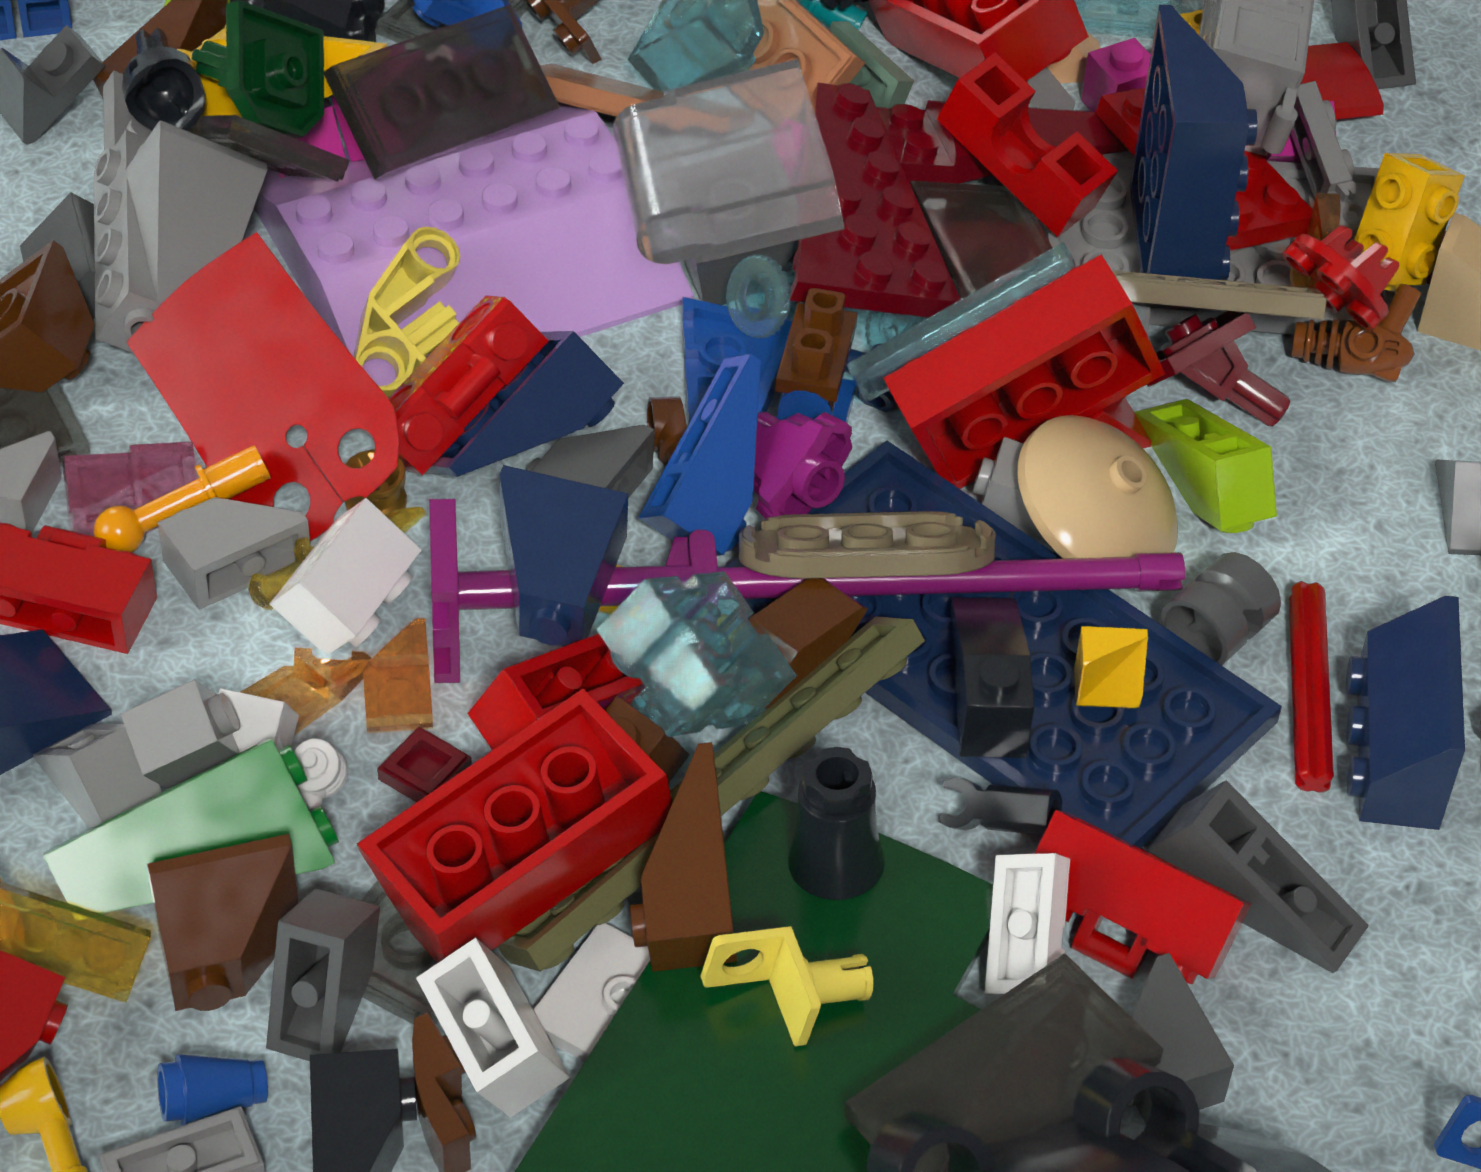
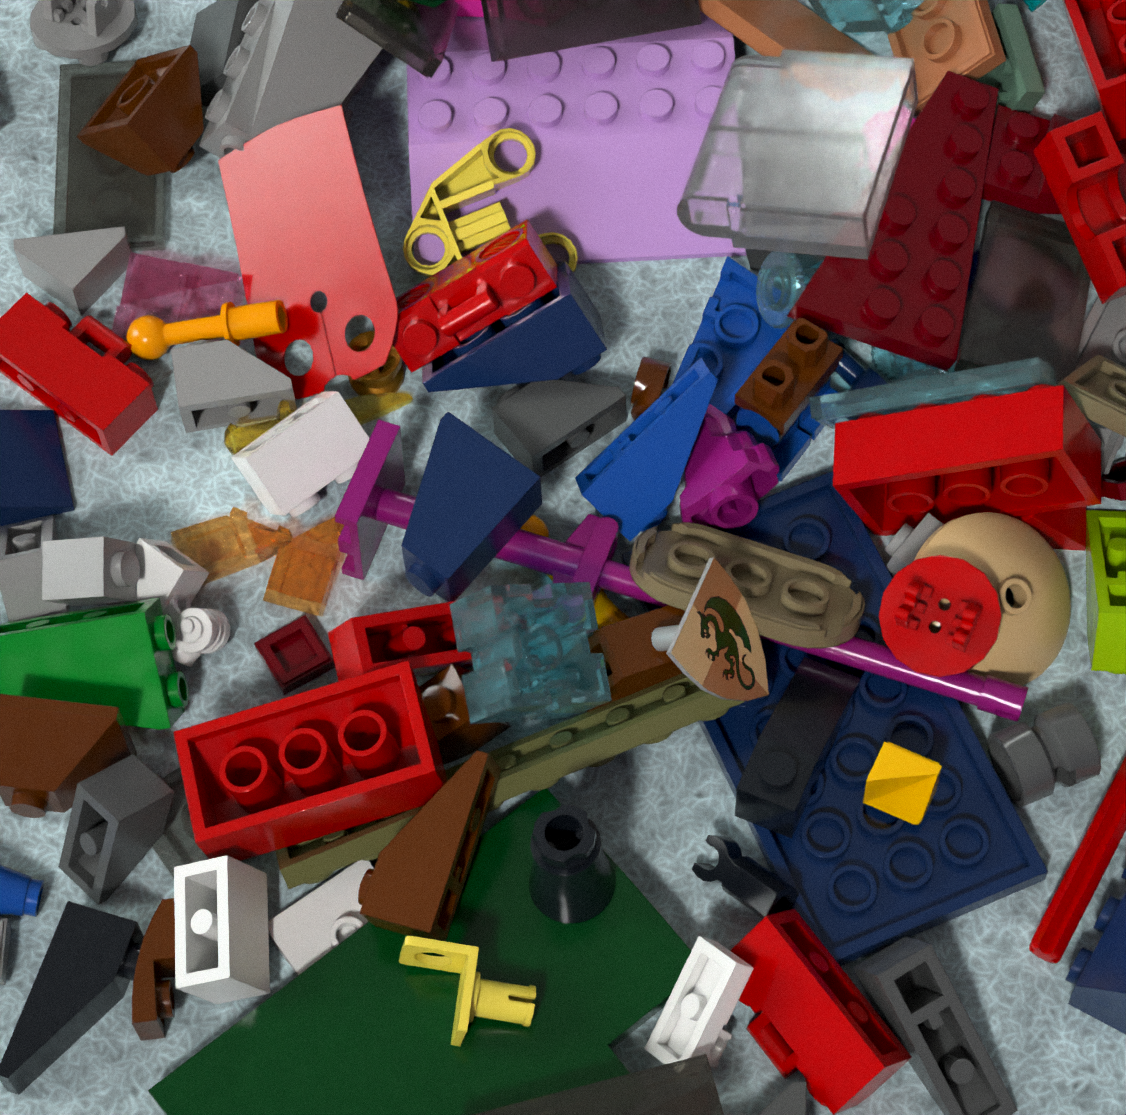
camera: 30 degrees right, 15 degrees up
(875, 583) = (717, 640): none -> shield
(1043, 502) = (967, 627): none -> red plate

